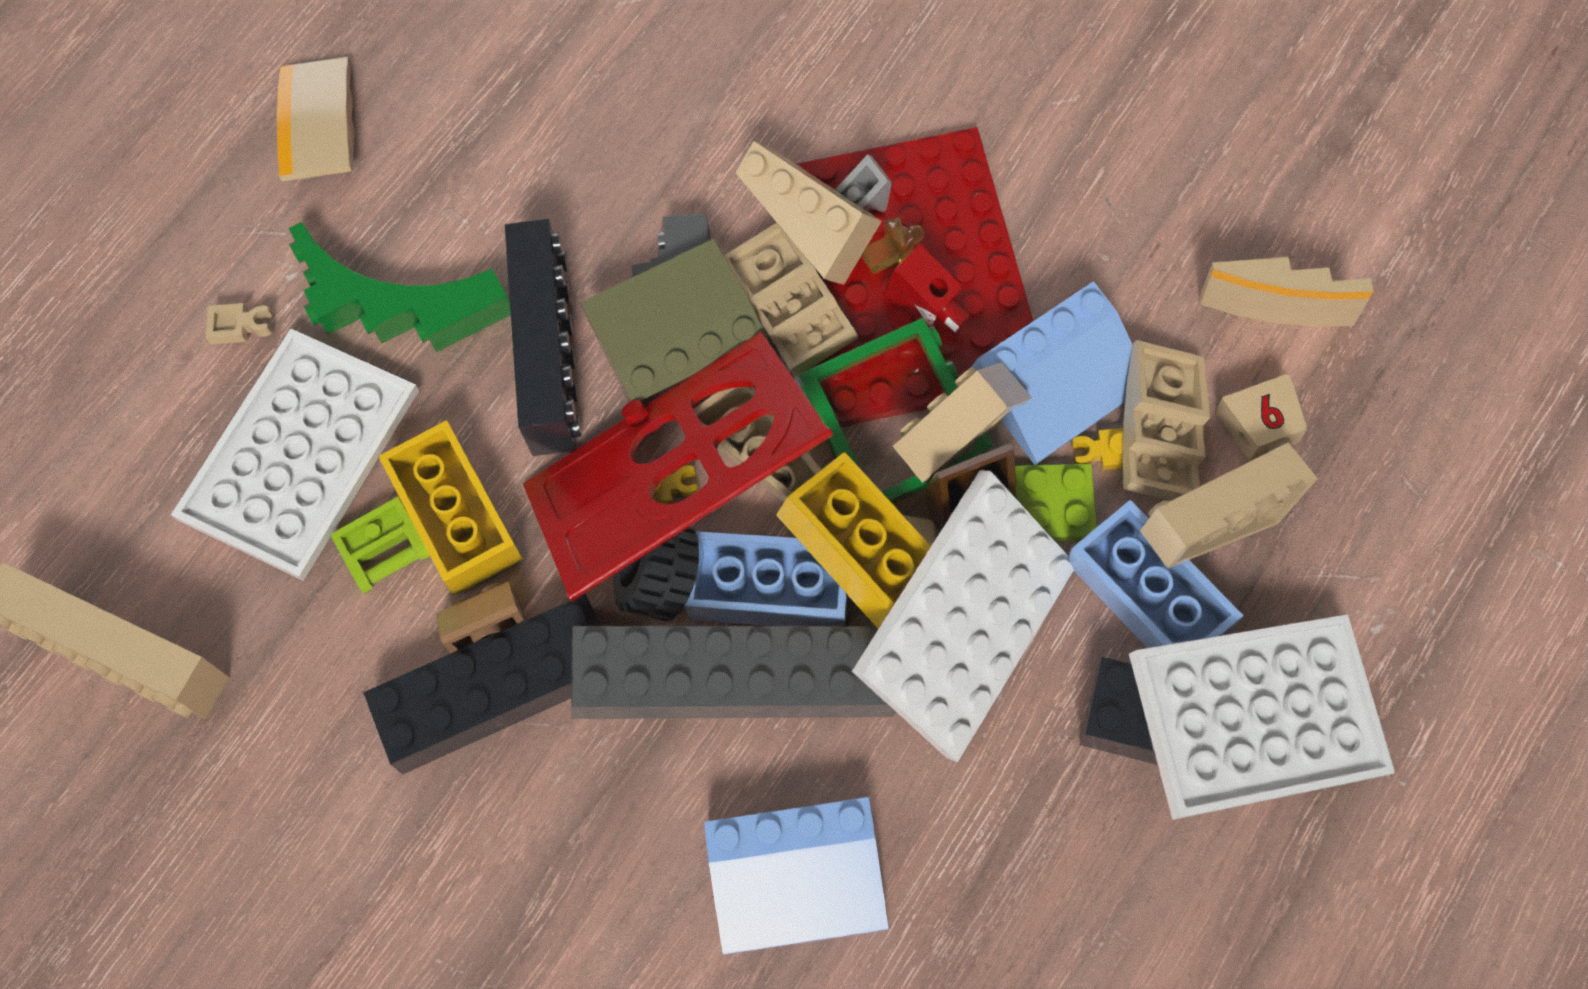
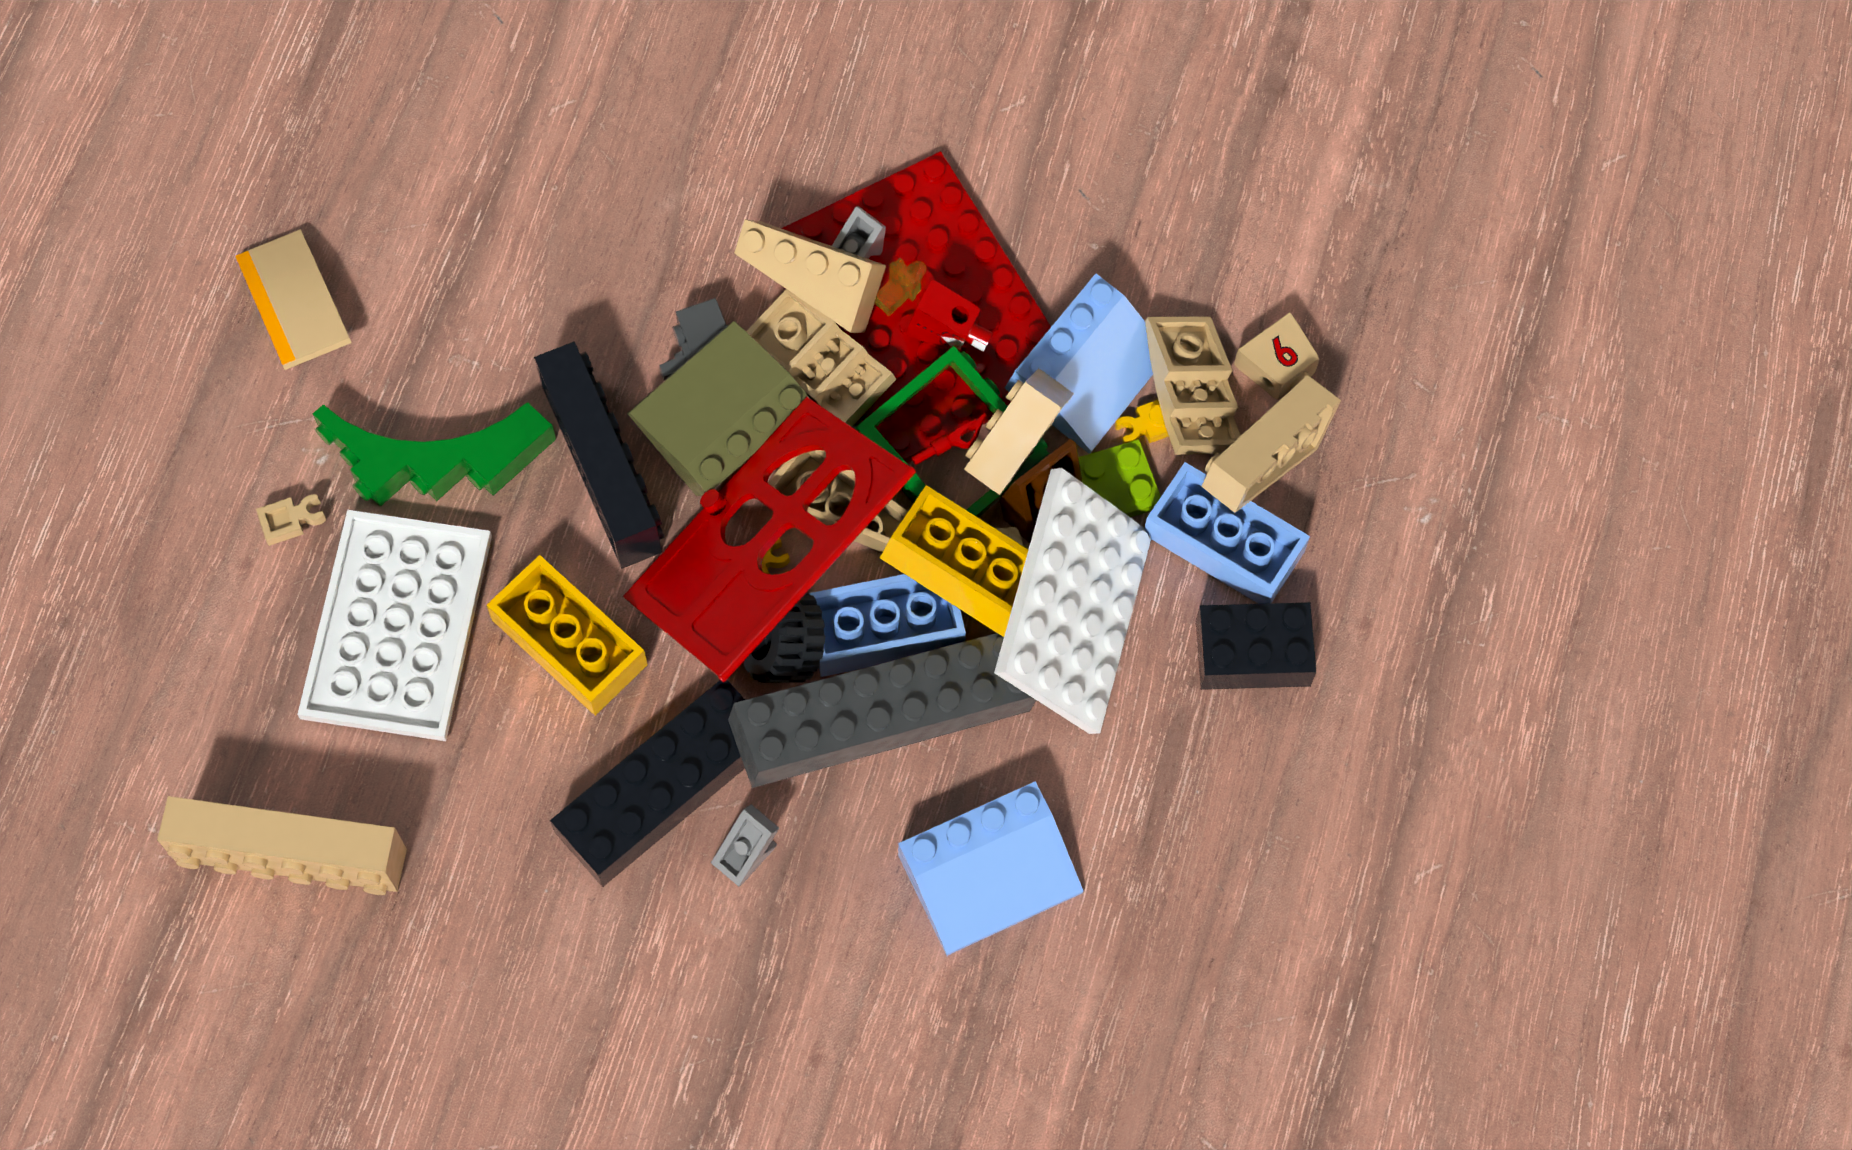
camera: 25 degrees left, 0 degrees up
(375, 534) = (500, 679): lime plate -> none
(479, 617) = (631, 725): medium nougat slope -> none
(553, 775) = (746, 845): none -> light grey slope
(885, 414) = (946, 442): none -> red hand
(1260, 715) = (1348, 616): white plate -> none
(1278, 295) = (1264, 243): tan slope -> none

